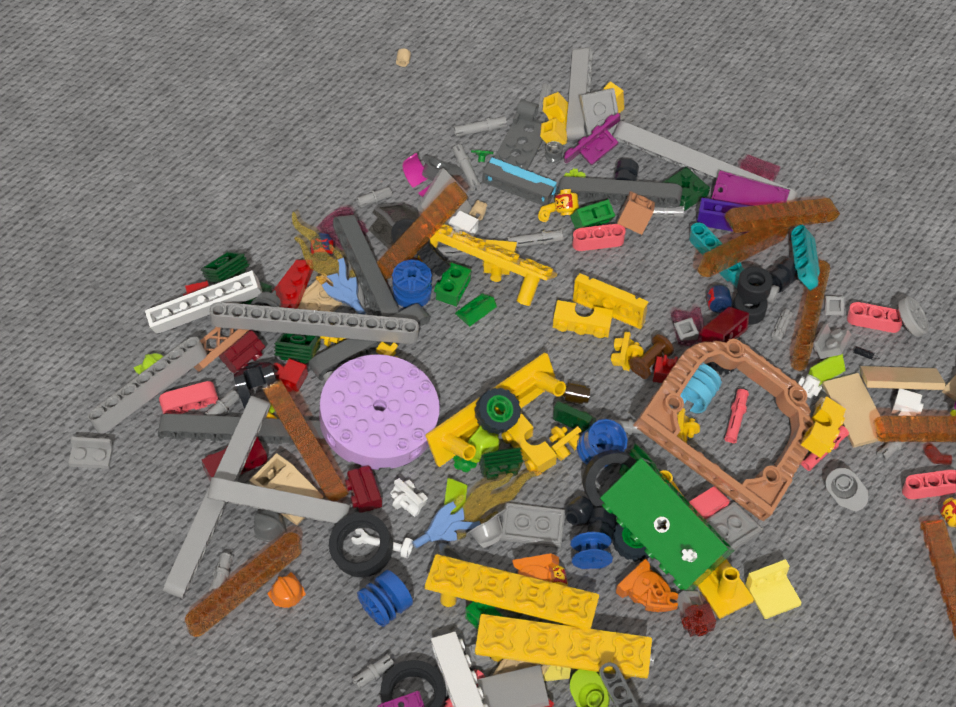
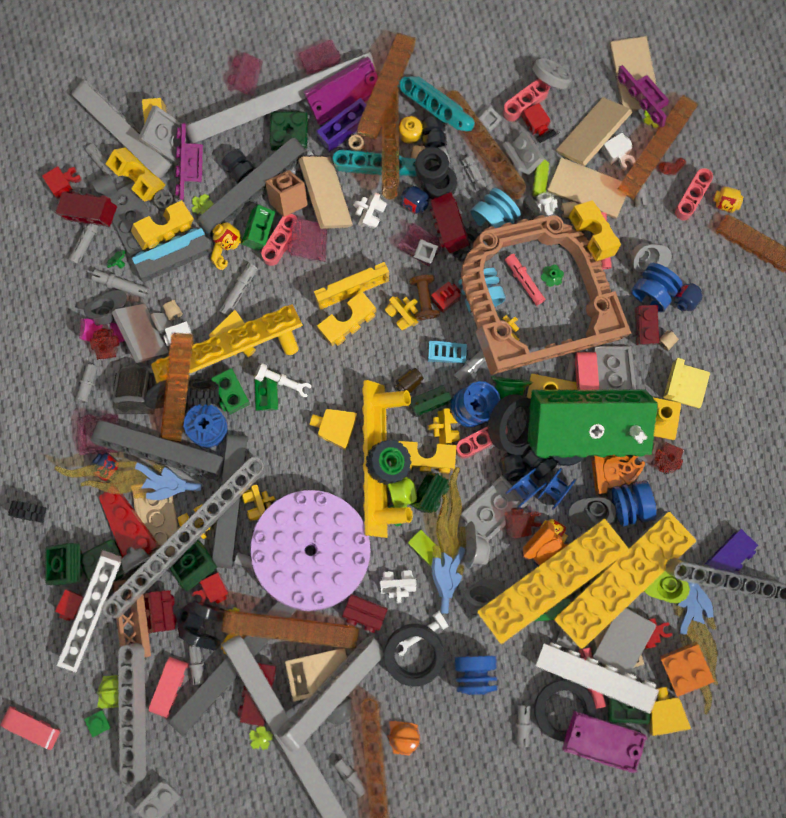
camera: 50 degrees left, 25 degrees up
(82, 334) = (29, 728): none -> coral beam
(121, 375) = (97, 723): none -> green plate
(198, 490) = (260, 738): none -> lime plant
(245, 221) = (27, 511): none -> black tyre
(413, 184) = (104, 343): none -> clear red brick
(488, 289) = (280, 379): none -> white piece
(492, 368) = (335, 426): none -> yellow torso
(500, 108) = (86, 209): none -> dark red brick
(503, 85) = (59, 182): none -> red brick
(521, 156) = (150, 234): none -> yellow arch
(538, 544) = (520, 522): none -> clear red brick
(569, 523) = (526, 488): none -> blue piece
(570, 470) = (472, 443): none -> coral beam
(607, 590) = (591, 511): none -> dark grey piece
(616, 252) = (307, 240): none -> clear pink slope
(624, 393) = (432, 344): none -> medium azure slope
(631, 614) = (638, 502): none -> blue wheel
(663, 239) = (325, 192): none -> tan tile
(672, 279) = (373, 203): none -> white hips
(698, 136) = (244, 73): none -> clear pink bracket
(721, 233) = (356, 139): none -> tan hose
(760, 435) = (550, 279): none -> green plant
(768, 257) = (410, 129): none -> yellow head
(771, 351) = (496, 209): none -> medium azure wheel
(790, 524) = (647, 325): none -> dark red brick
(794, 368) = (530, 208): none -> clear smoke tile
(795, 552) = (668, 340): none -> tan hose
(828, 506) = (658, 284): none -> blue wheel
(845, 540) = (688, 297): none -> dark blue head
(868, 334) = (536, 119): none -> red brick

